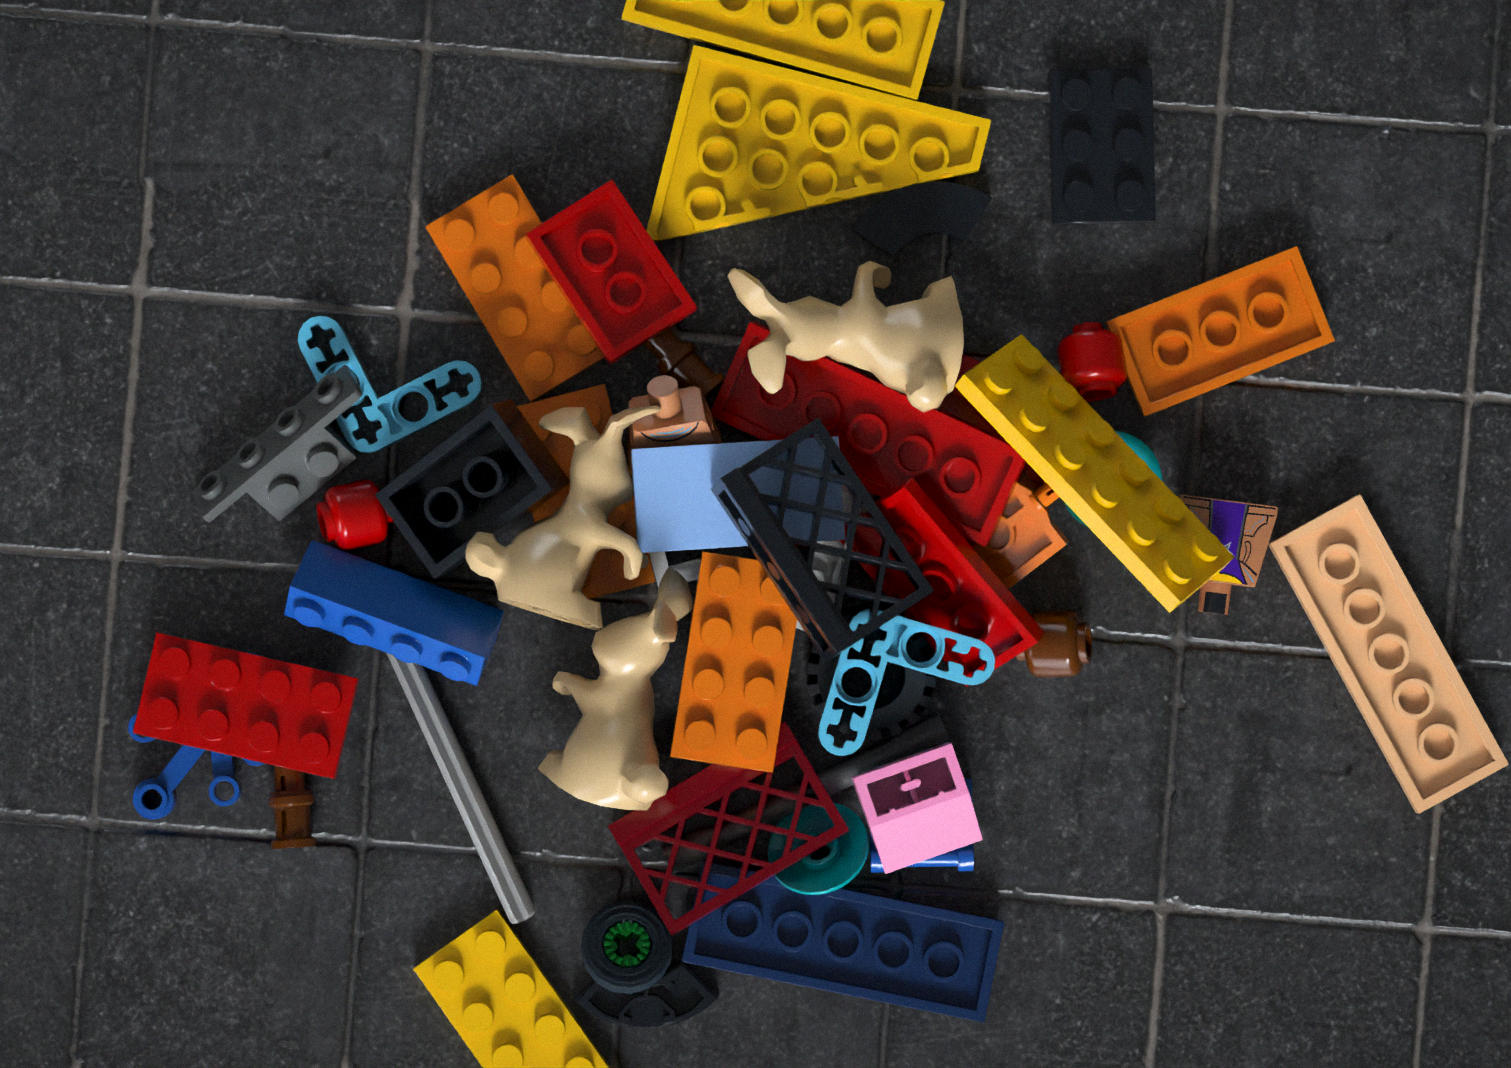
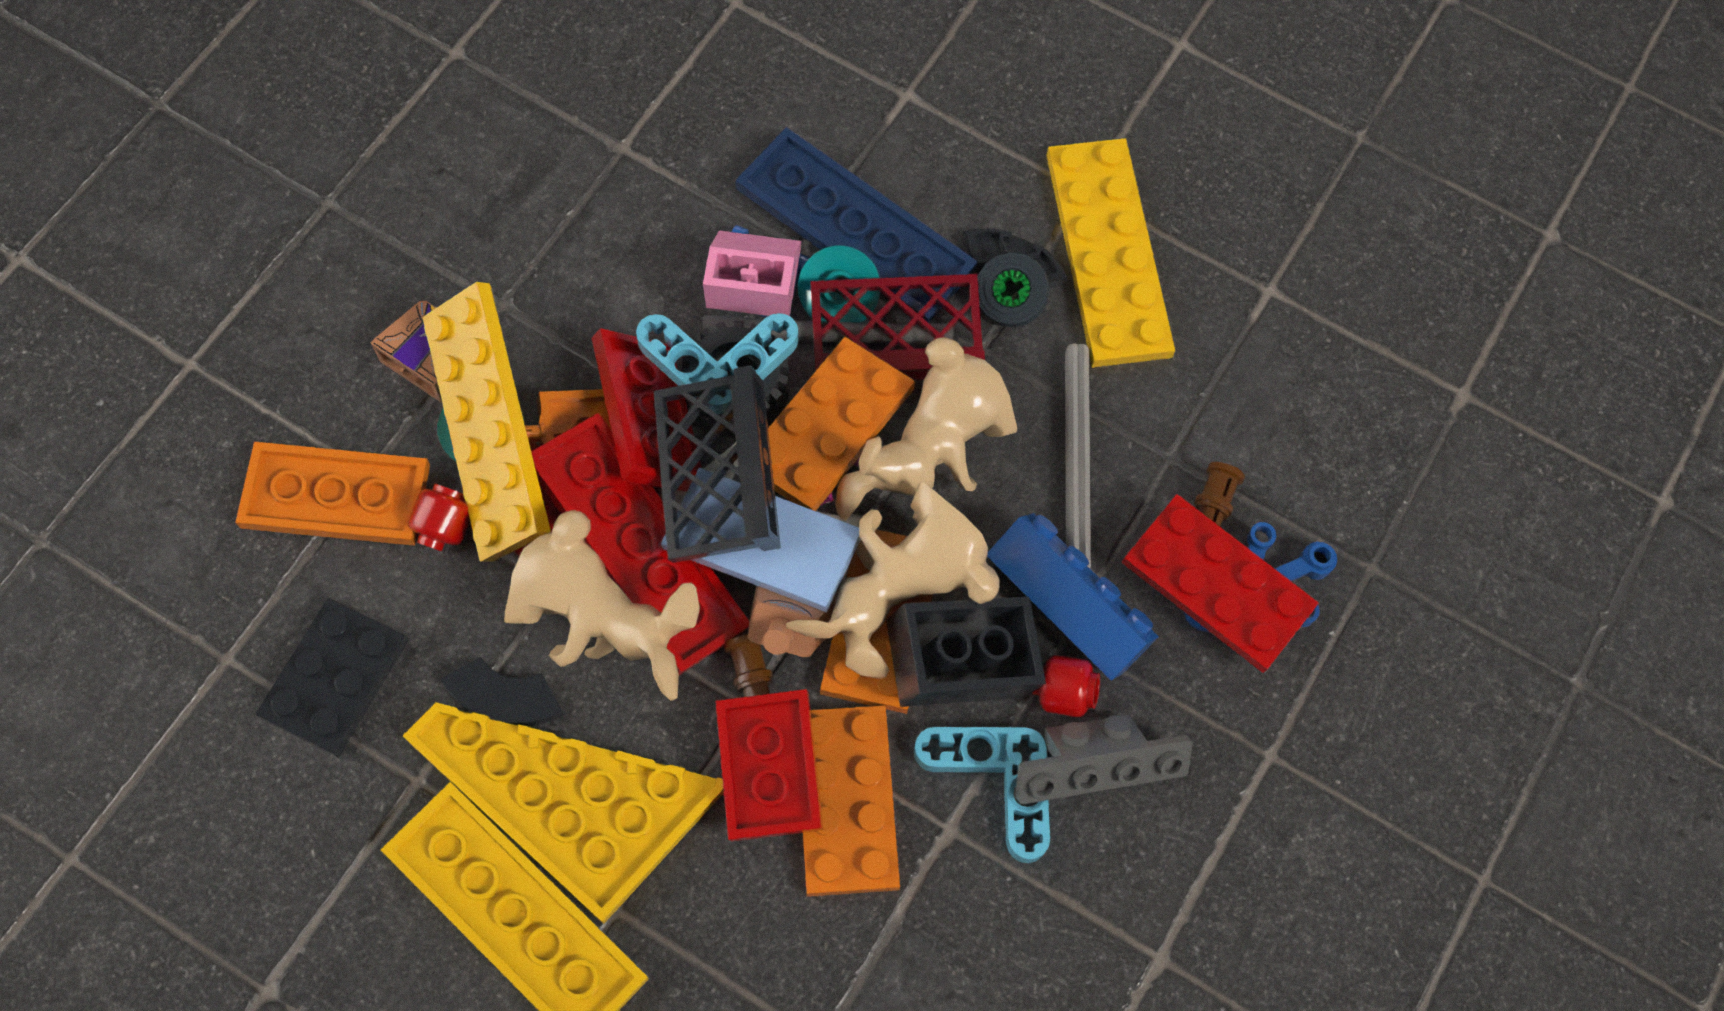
camera: 155 degrees left, 20 degrees down
(1061, 648) = (578, 335): reddish brown head -> none
(1388, 654) = (361, 224): light nougat plate -> none

